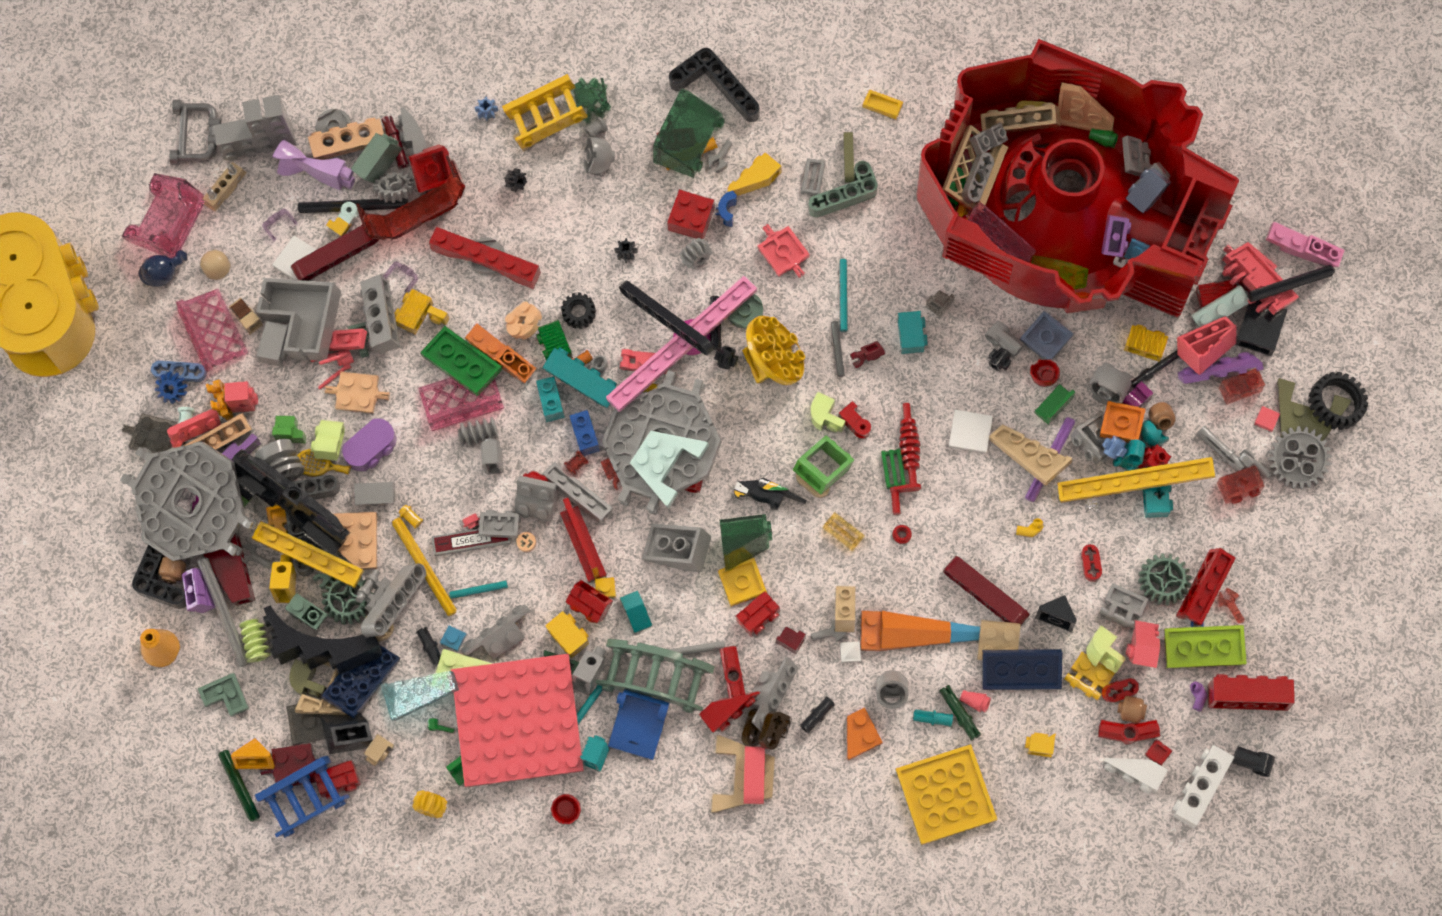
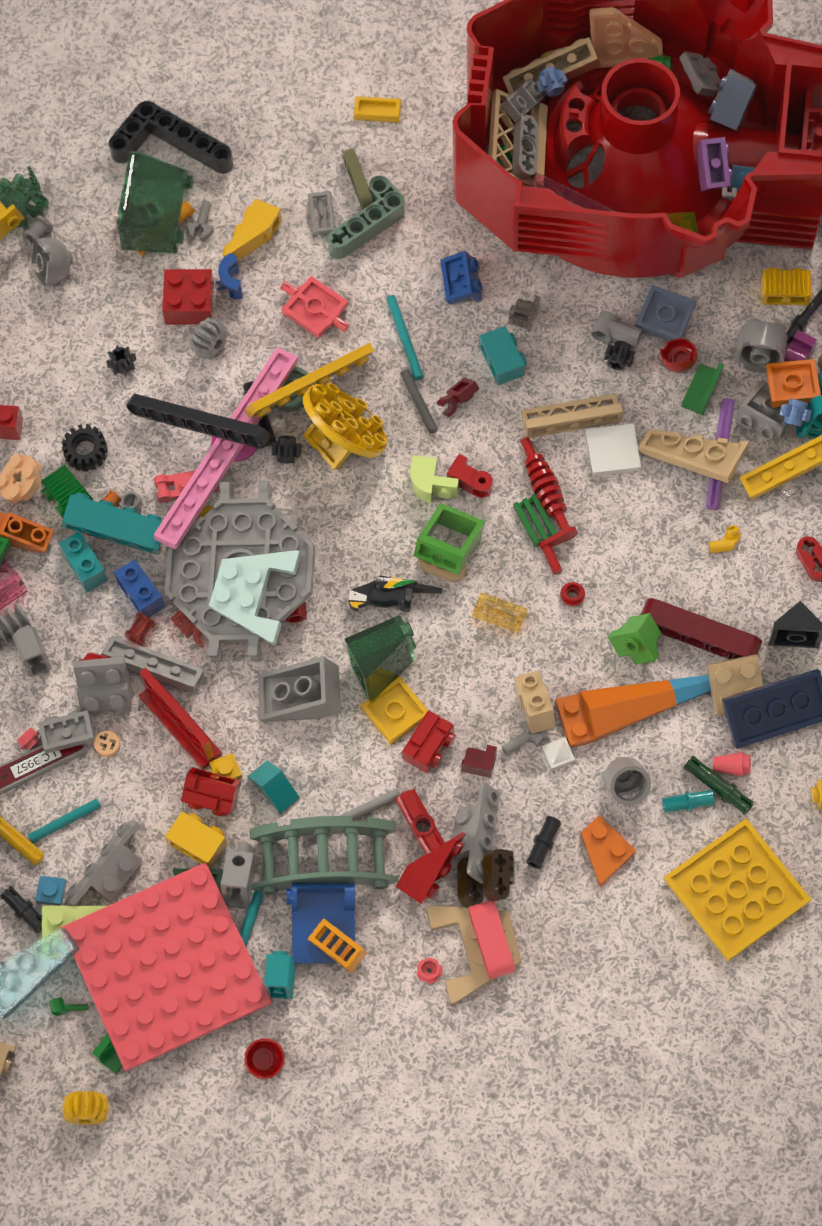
camera: 20 degrees left, 5 degrees down
(653, 757) = (356, 957): none -> light orange slope
(703, 777) = (429, 963): none -> coral plate
(767, 310) = (320, 376): none -> yellow plate
(901, 261) = (461, 277): none -> blue bracket
(937, 584) = (637, 638): none -> bright green brick
(948, 399) = (572, 419): none -> tan fence
(1015, 131) = (551, 82): none -> medium blue gear

